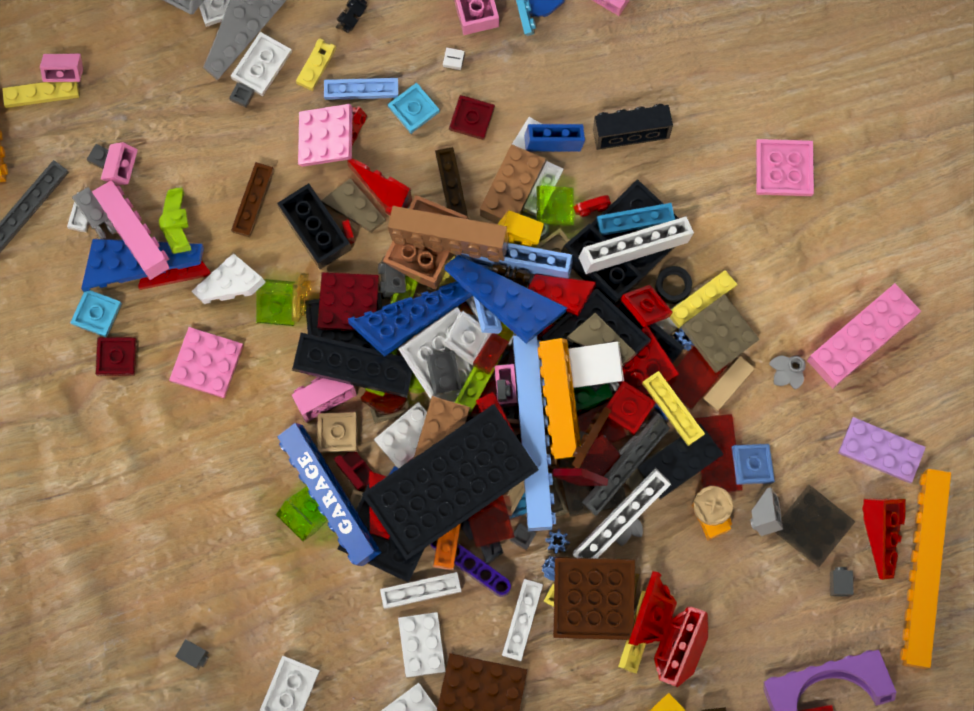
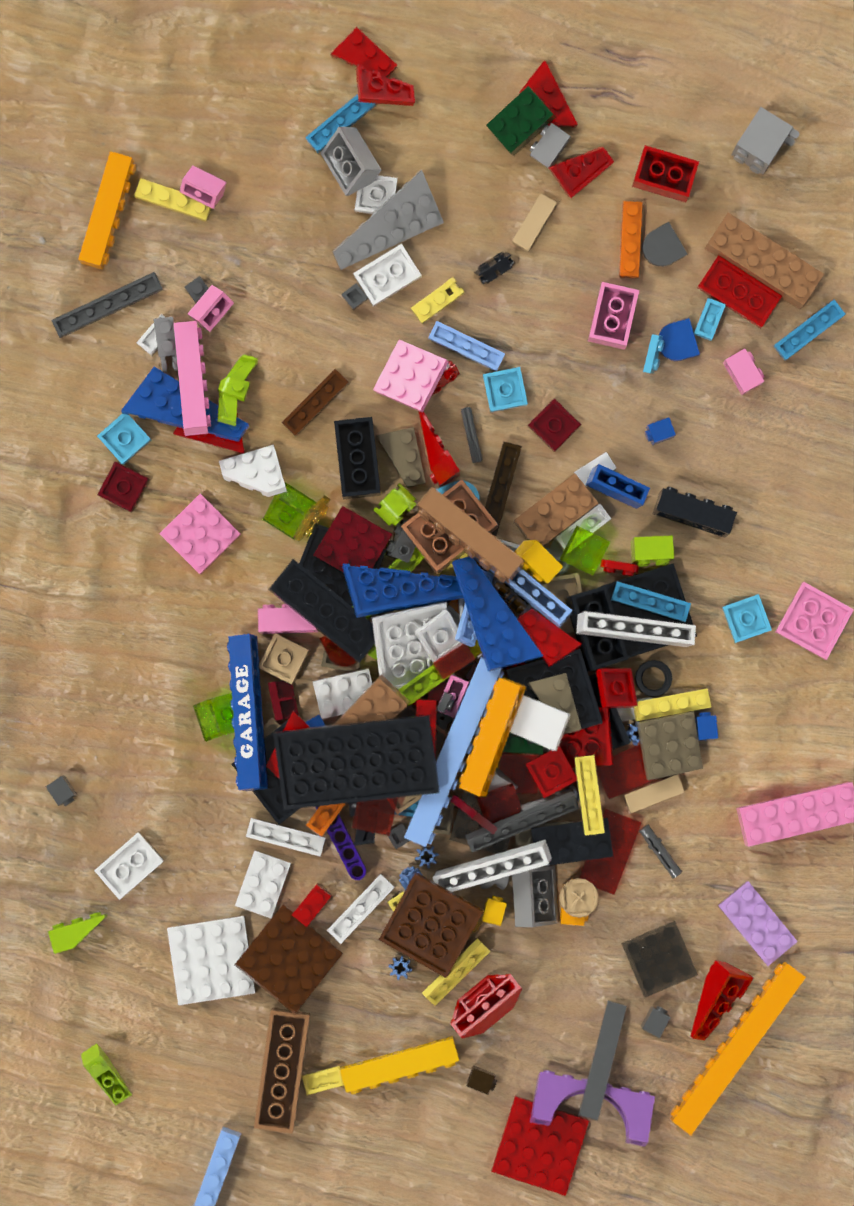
camera: 25 degrees right, 10 degrees up
(348, 232) = (385, 478): red tile -> none
(368, 248) = (395, 504): none -> lime brick
(404, 160) = (471, 435): none -> dark grey axle
(443, 372) = (402, 657): dark grey plate -> none
(453, 58) = (566, 359): white tile -> none
(476, 638) = (311, 905): none -> red brick
(566, 77) = (660, 431): none -> blue brick
(583, 659) = (395, 970): none -> medium blue gear
(587, 440) = (497, 787): reddish brown plate -> none
(613, 175) = (652, 550): none -> lime brick
(644, 558) = (494, 910): none -> yellow brick
(654, 613) = (476, 964): red wing -> none
(673, 527) = (535, 897): none -> light grey slope
(726, 194) = (746, 618): none -> medium azure plate
(743, 301) = (706, 726): none -> blue brick
(753, 464) = (635, 877): medium blue tile -> none
(761, 430) = (655, 844): none -> dark grey pin
(767, 514) = (623, 928): light grey slope -> none
(786, 373) = (711, 811): light grey plate -> none
(814, 642) = (602, 1060): none -> dark grey tile

